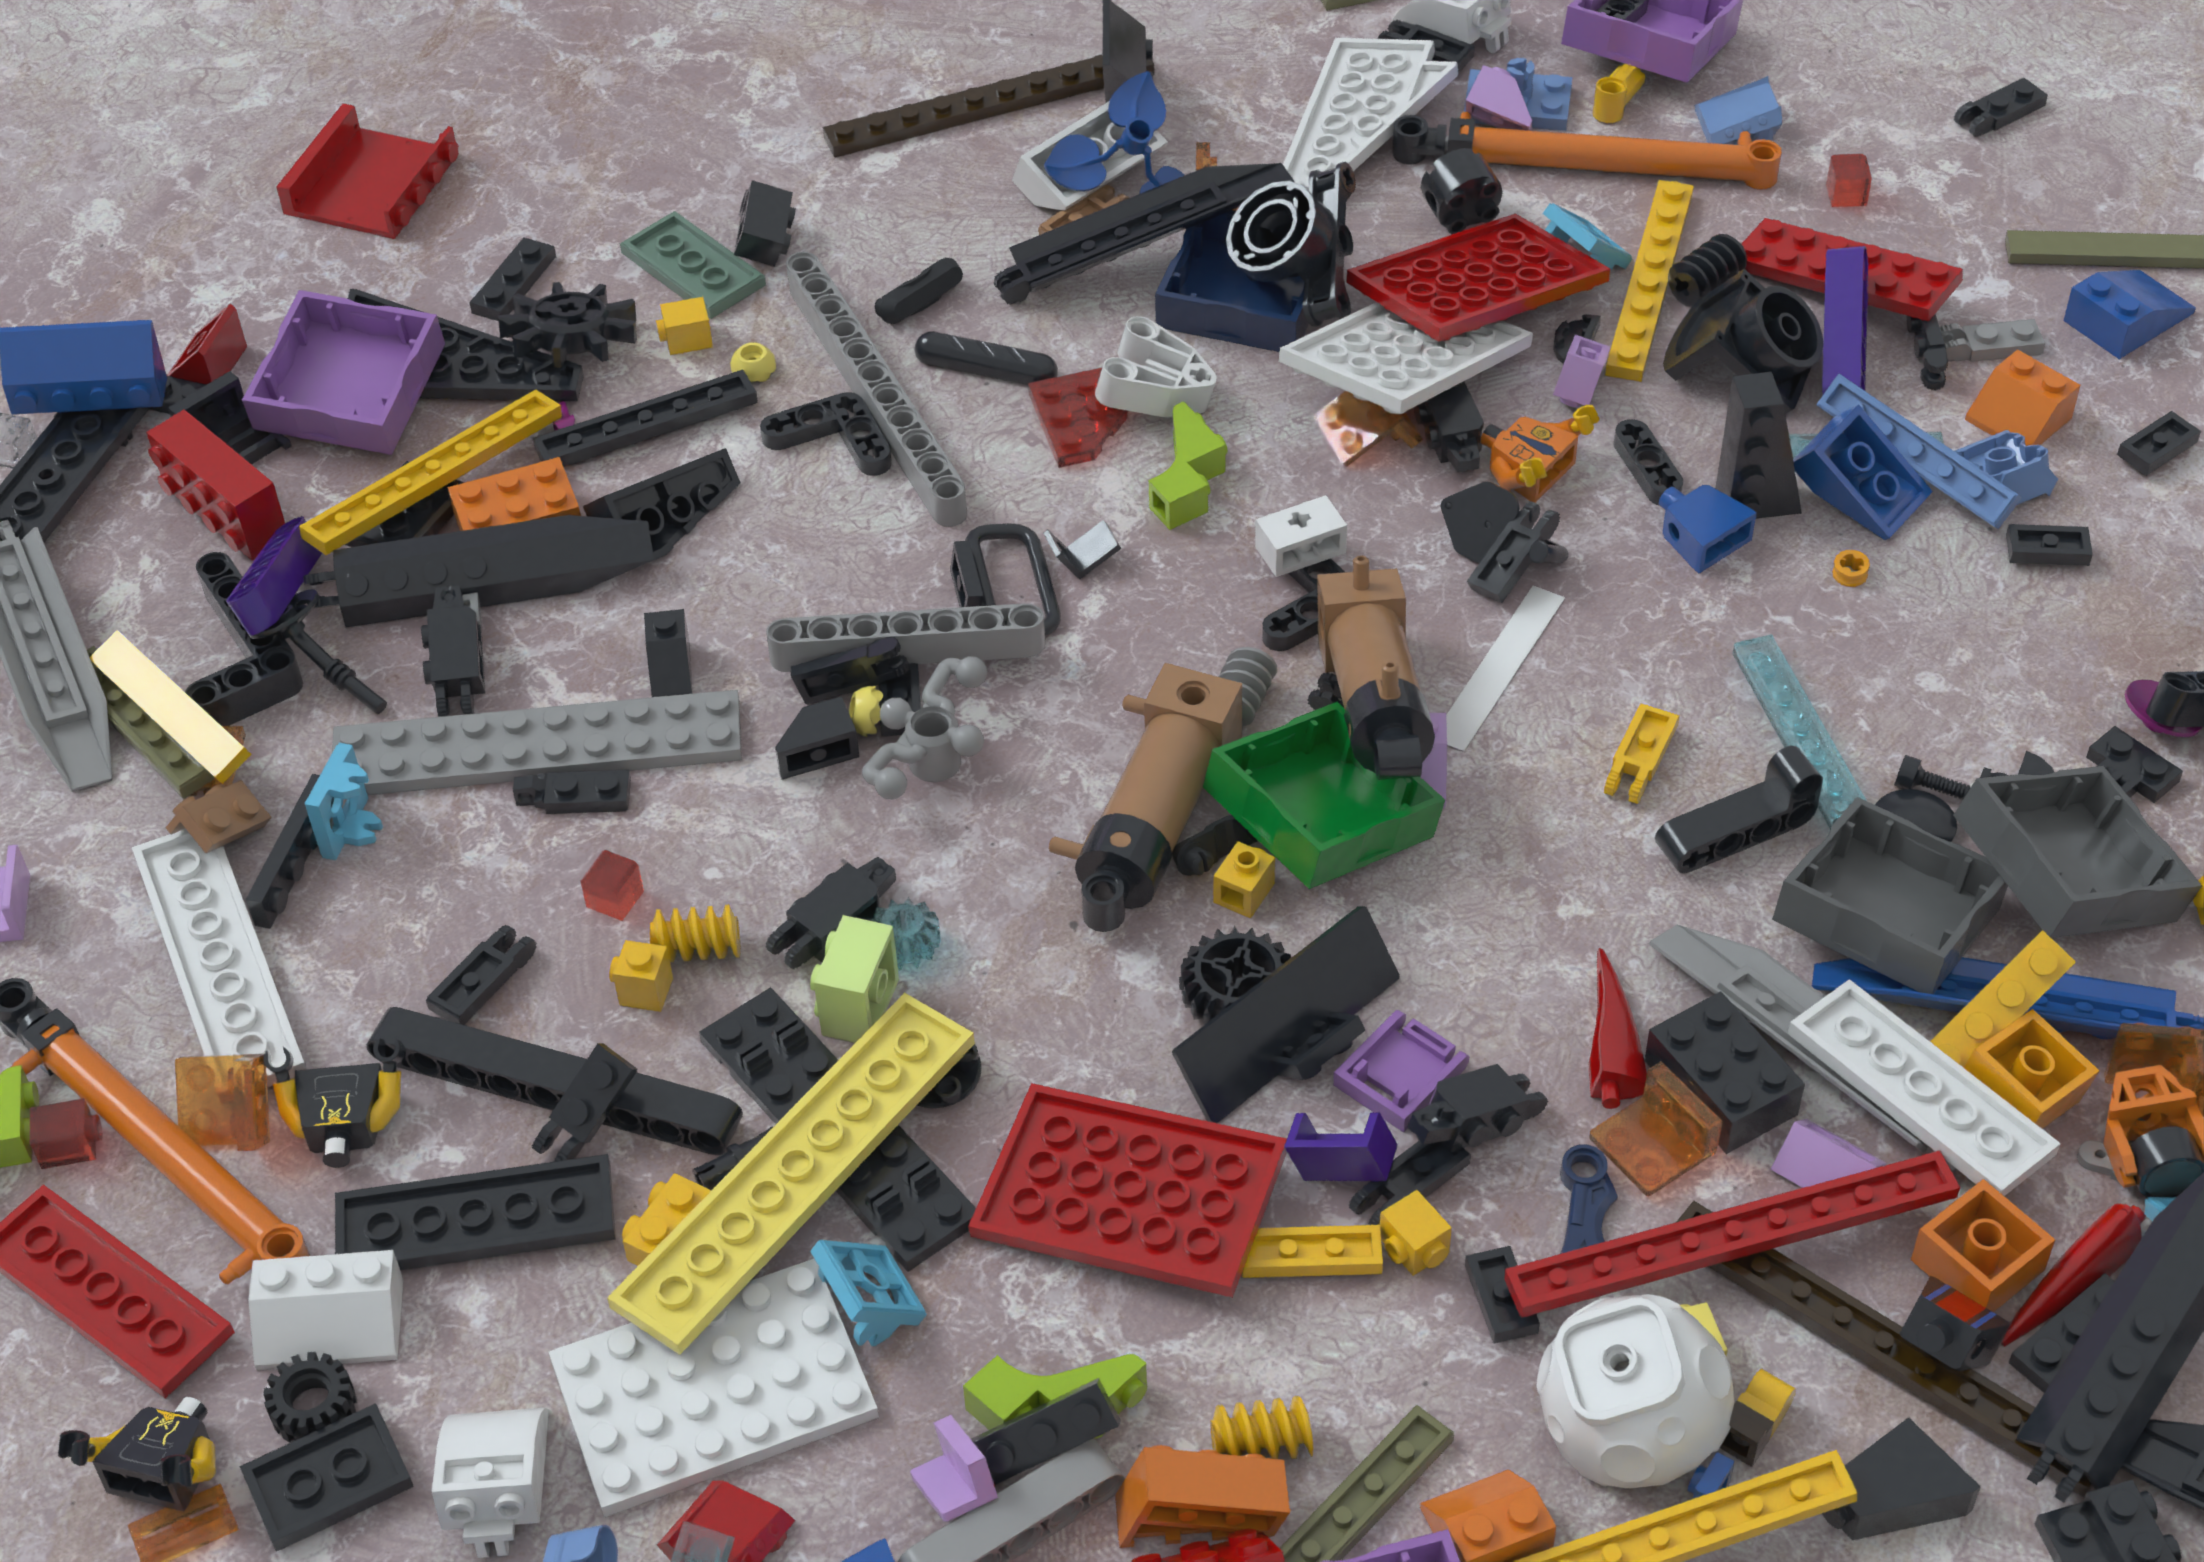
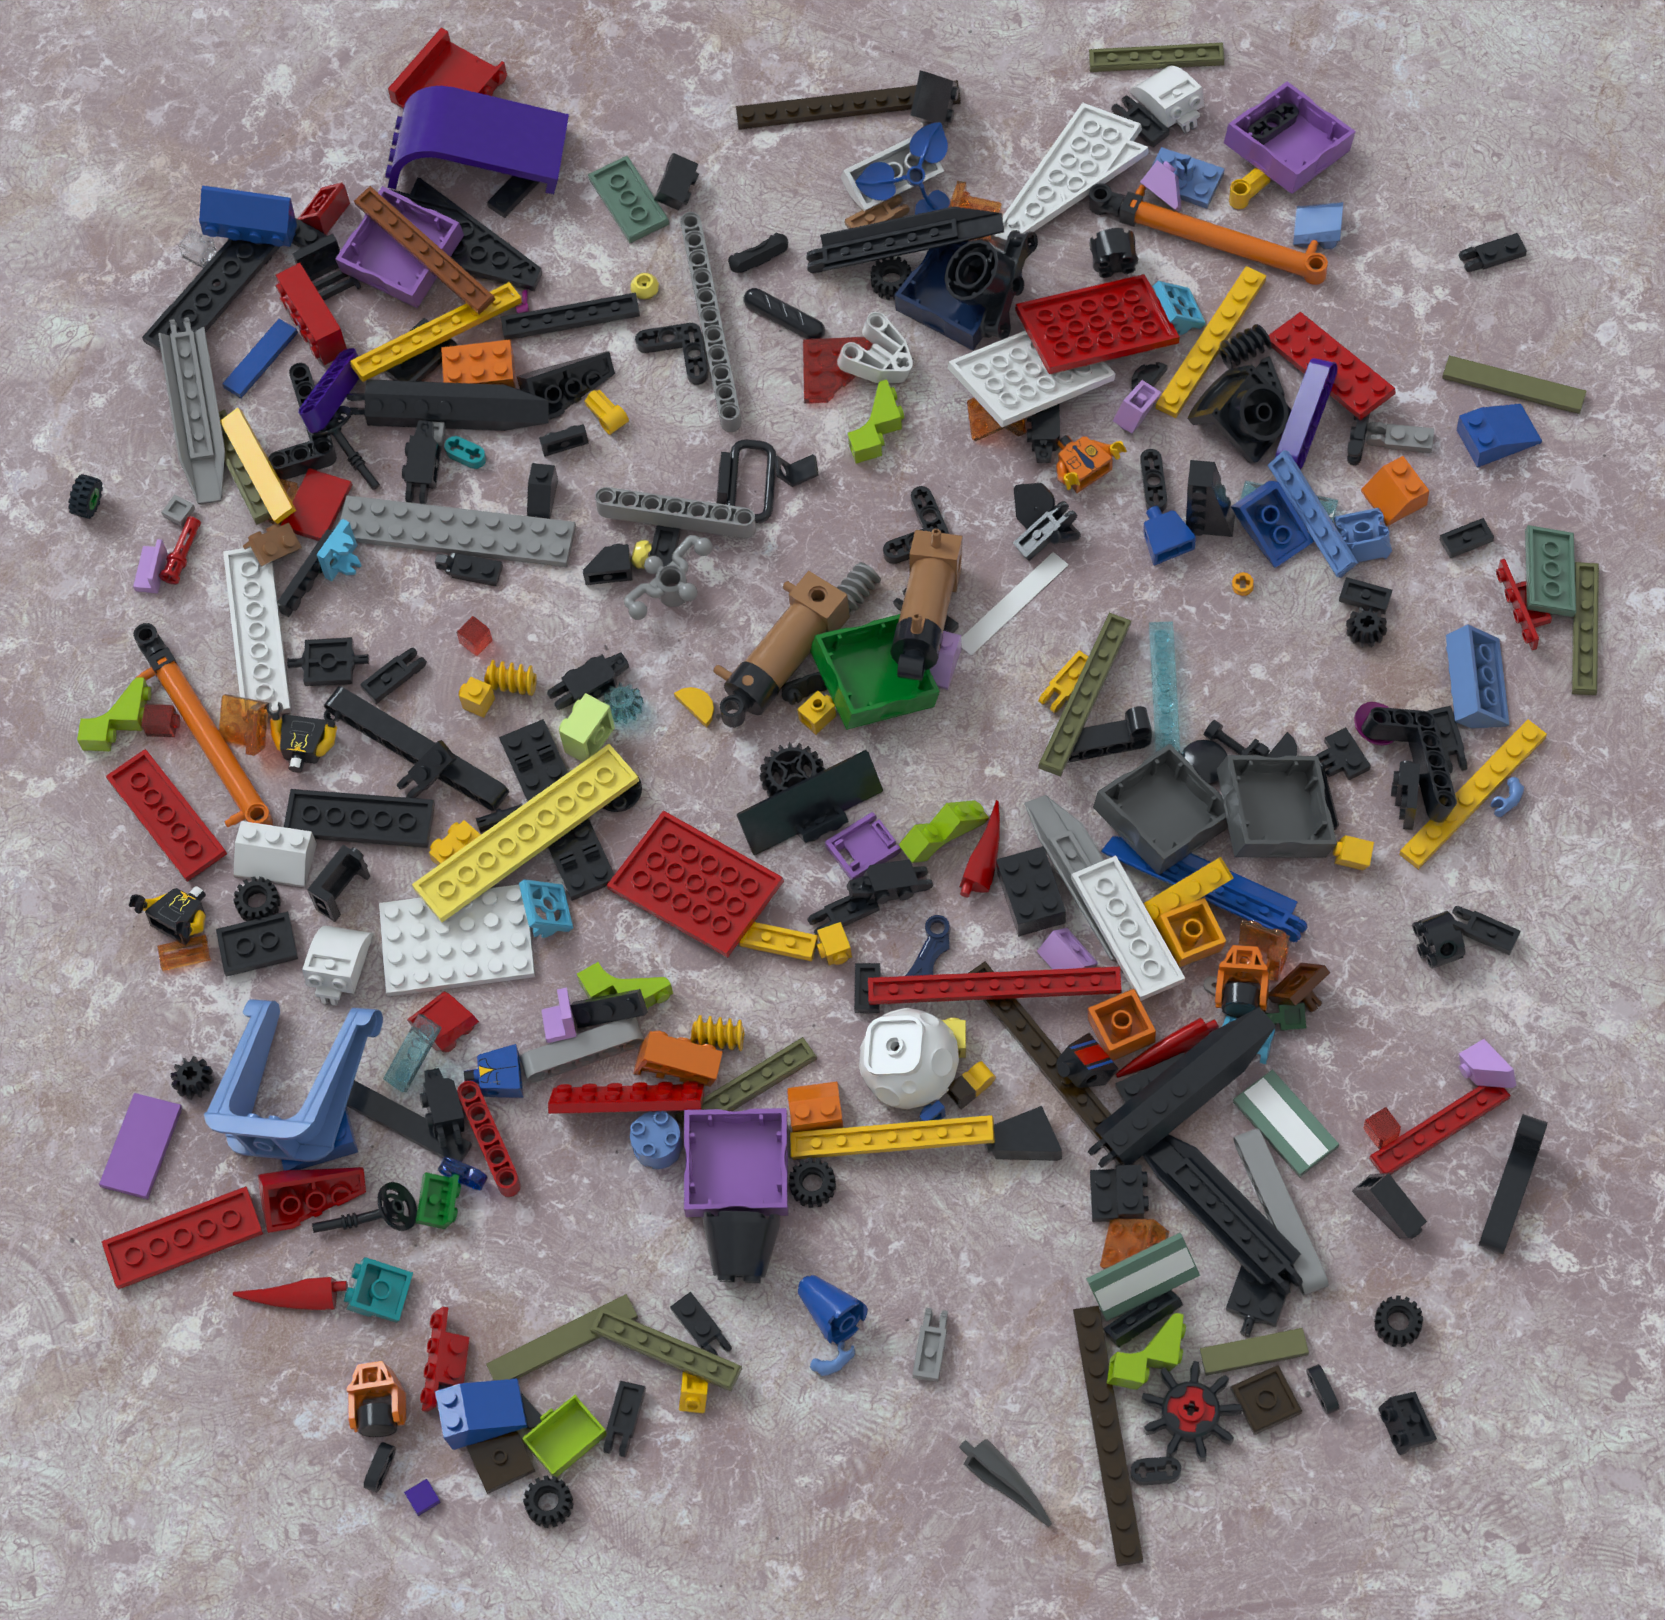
camera: 20 degrees right, 15 degrees up
(38, 804) = (178, 510): none -> light grey plate
(65, 827) = (178, 557): none -> red pin
(140, 569) = (260, 358): none -> blue tile
(286, 749) = (317, 504): none -> red tile
(358, 978) = (328, 661): none -> black plate
(390, 359) = (424, 250): none -> dark orange tile
(436, 200) = (480, 134): none -> dark purple panel
(467, 1299) = (335, 878): none -> black panel
(522, 631) = (466, 450): none -> teal beam
(569, 323) = (541, 235): black gear -> none
(685, 326) = (610, 250): yellow brick -> none
(685, 581) = (563, 440): none -> black plate
(749, 535) = (609, 415): none -> yellow piece
(849, 670) = (638, 527): black hinge -> none
(1032, 910) = (697, 703): none -> yellow tile
(1128, 271) = (887, 267): none -> black tyre
(1300, 536) = (922, 492): white brick -> none
(1341, 1156) = (809, 890): dark purple panel -> none
(1540, 997) = (948, 824): none -> lime arch
(1659, 1133) = (981, 919): clear orange bracket -> none
(1683, 762) = (1084, 694): none -> olive tile
(1848, 180) = (1365, 293): clear red piece -> none
(2074, 584) = (1357, 623): none -> black gear

